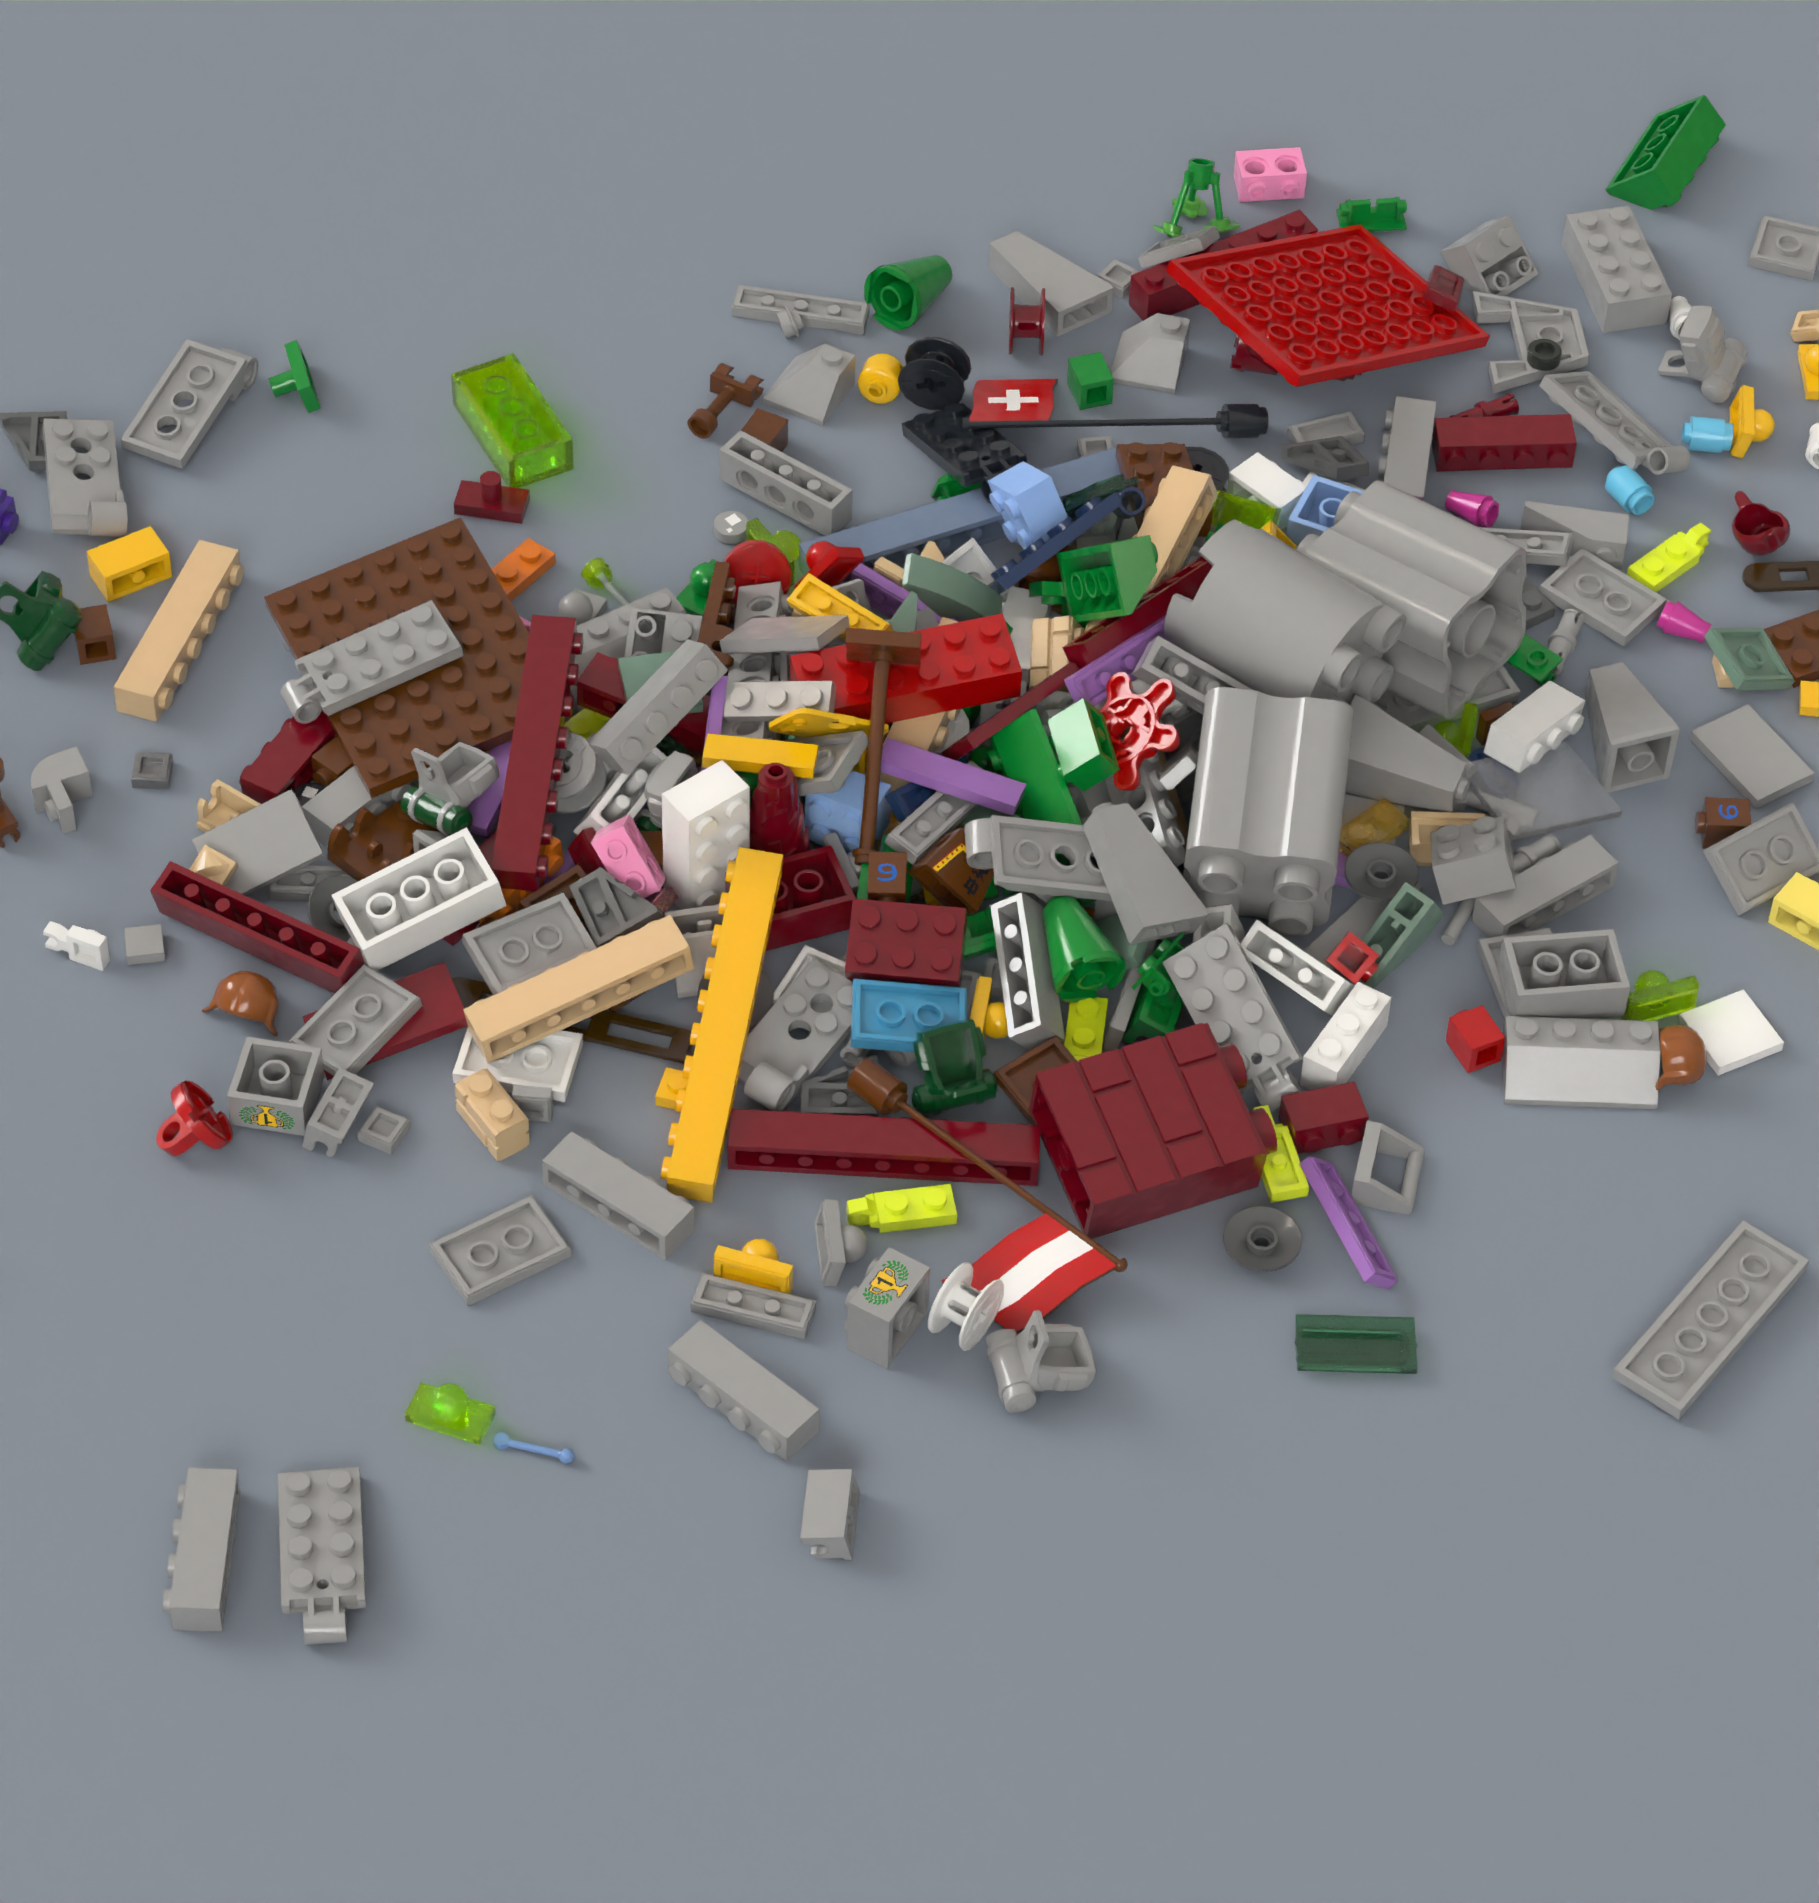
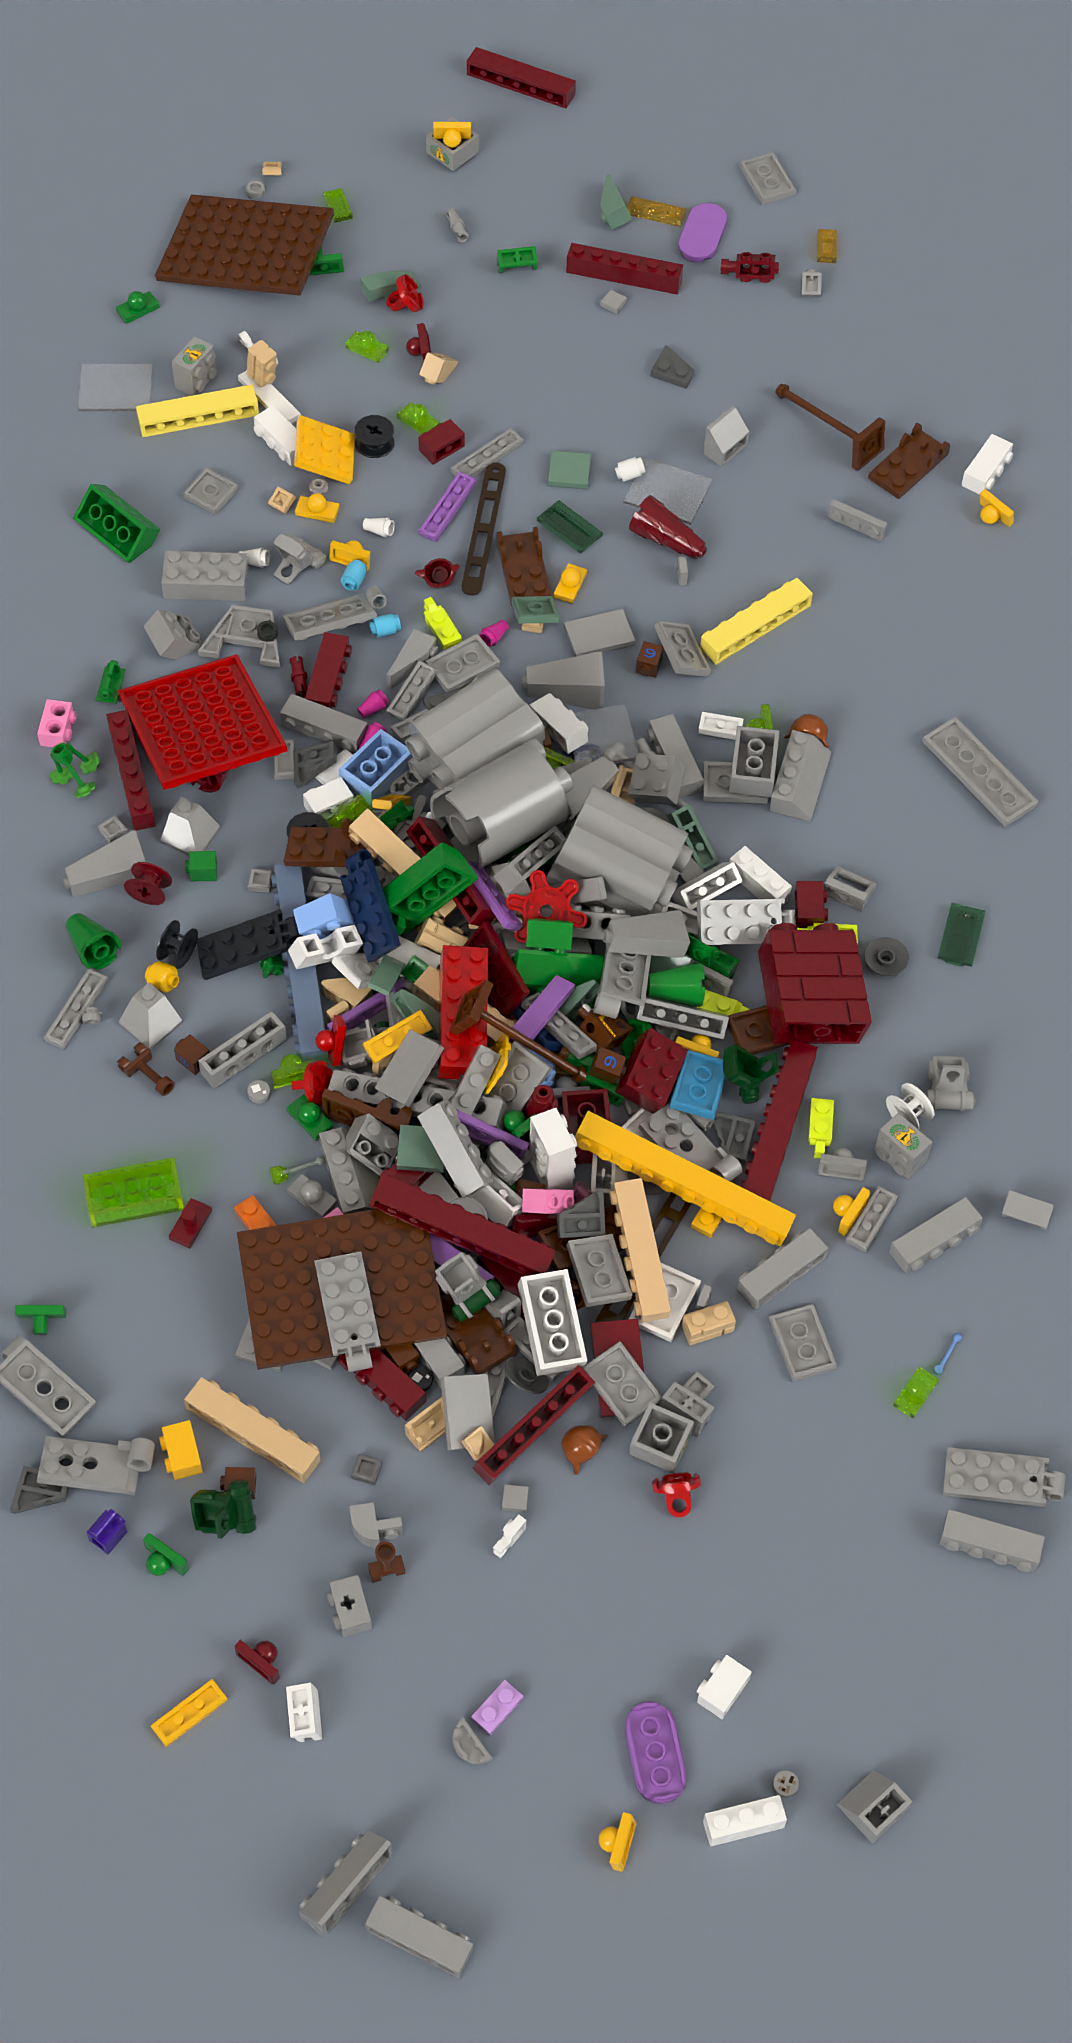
camera: 75 degrees left, 10 degrees up
(753, 754) = (514, 1101): yellow tile -> none
(964, 503) = (311, 950): none -> white arch
(1031, 404) = (224, 908): flag -> none
(1039, 1261) = (881, 1068): flag -> none
(1102, 489) = (328, 878): clear green piece -> none
(1179, 246) = (113, 785): light grey tile -> none
(1348, 1222) = (882, 913): medium lavender tile -> none
(1353, 958) = (710, 856): red brick -> none
(1444, 288) = (192, 664): dark red tile -> none
(1475, 1039) = (774, 818): red brick -> none
(1636, 940) = (719, 725): none -> white plate
(1732, 1031) = (789, 703): white tile -> none

